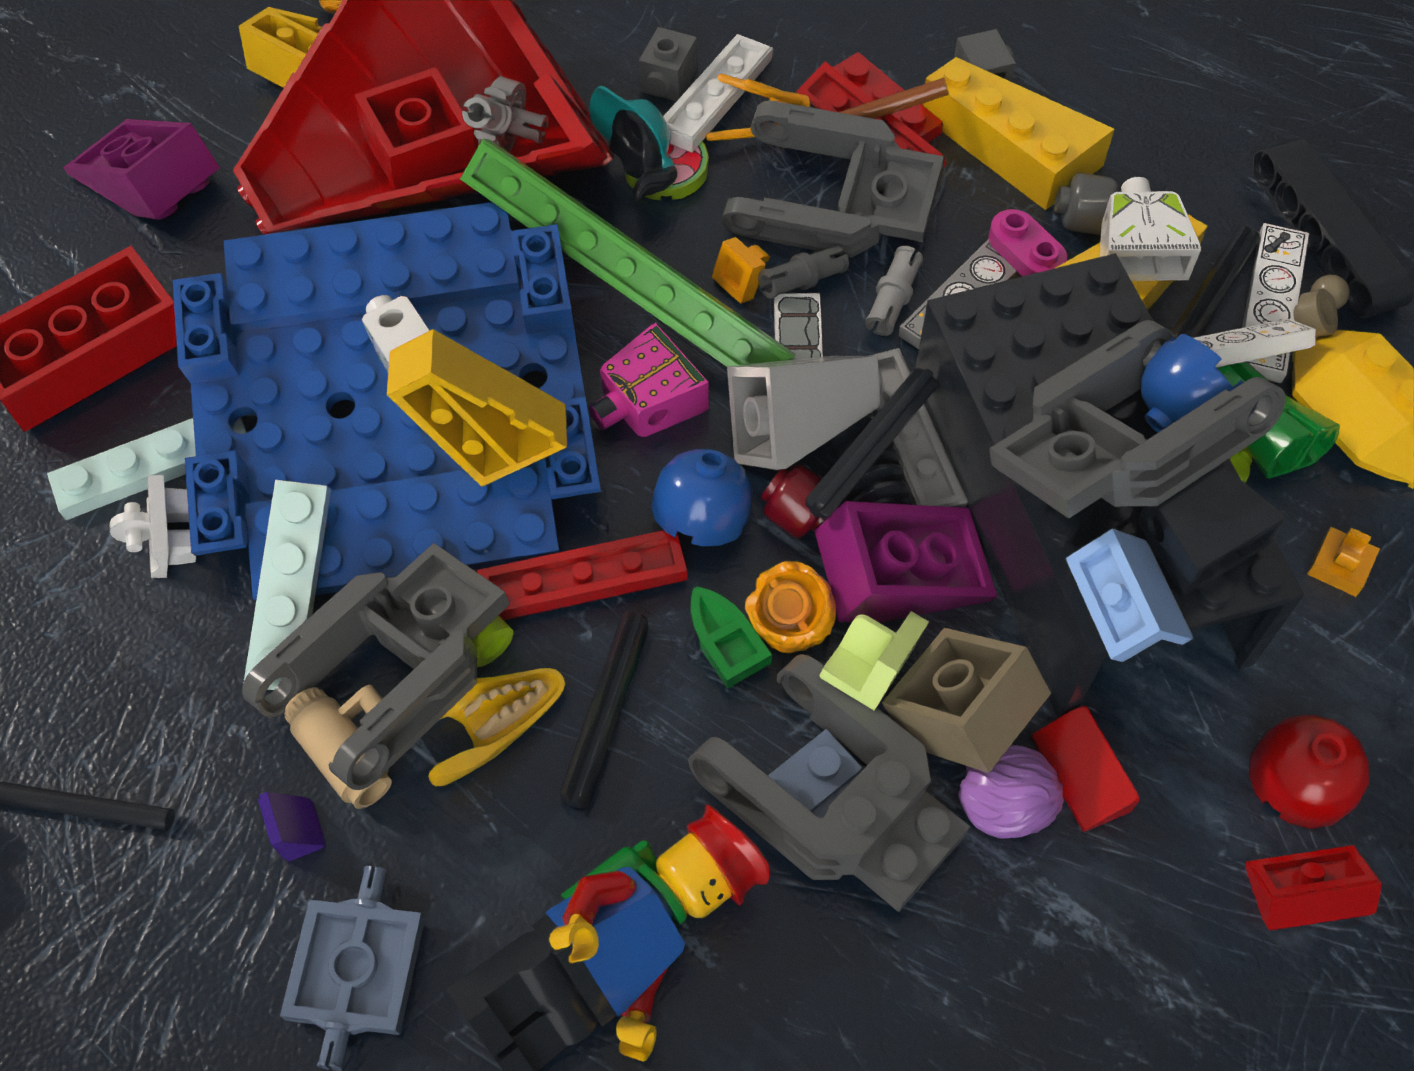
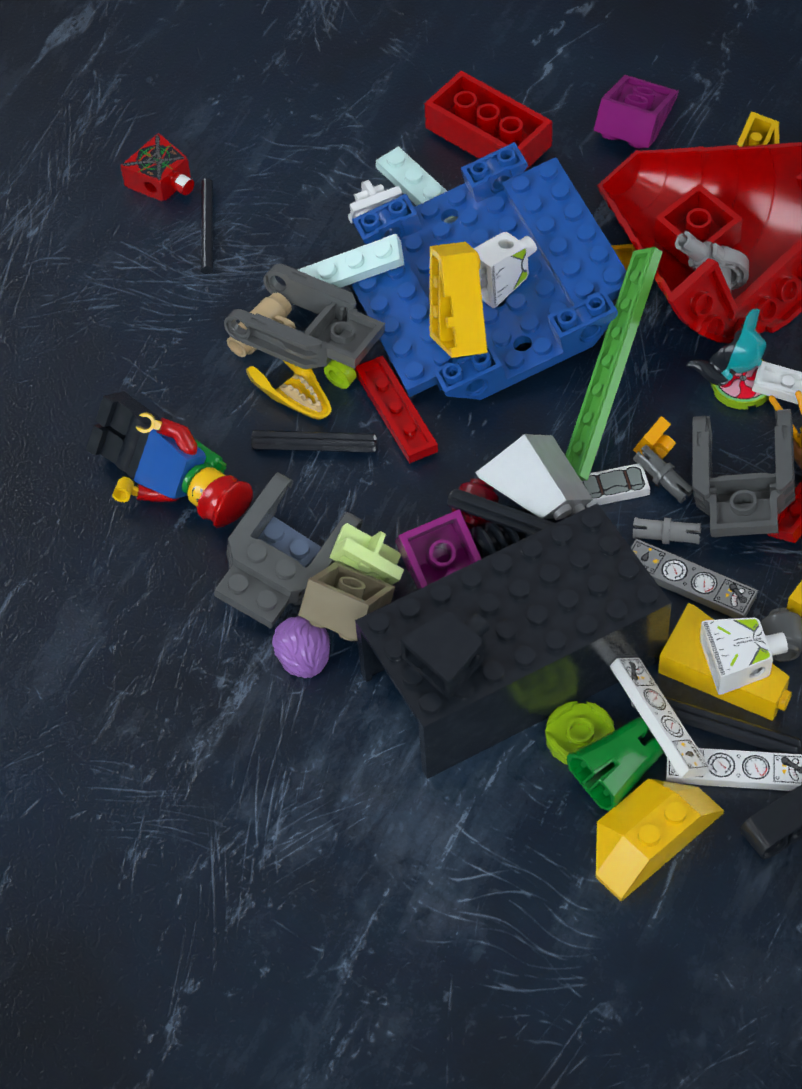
camera: 80 degrees right, 5 degrees down
(291, 824) = (210, 318): dark purple slope -> none
(353, 967) = (142, 366): sand blue plate -> none
(650, 386) = (542, 406): dark pink torso -> none
(703, 497) = (459, 451): blue cylinder -> none
(727, 637) = (370, 487): green plate -> none
(791, 607) = (395, 512): light orange hair -> none
(1022, 241) = (729, 597): dark pink plate -> none
(1083, 454) = (474, 573): dark grey plate -> none
(1087, 768) = (328, 686): red slope -> none
(1127, 594) = (387, 622): light blue panel -> none
(1180, 380) = (538, 633): blue cylinder -> none
(1309, 770) = (353, 806): red cylinder -> none
(1313, 887) = (278, 815): red slope -> none
(1320, 305) = (750, 802): dark tan plate -> none
(1344, 560) = (518, 824): light orange tile -> none

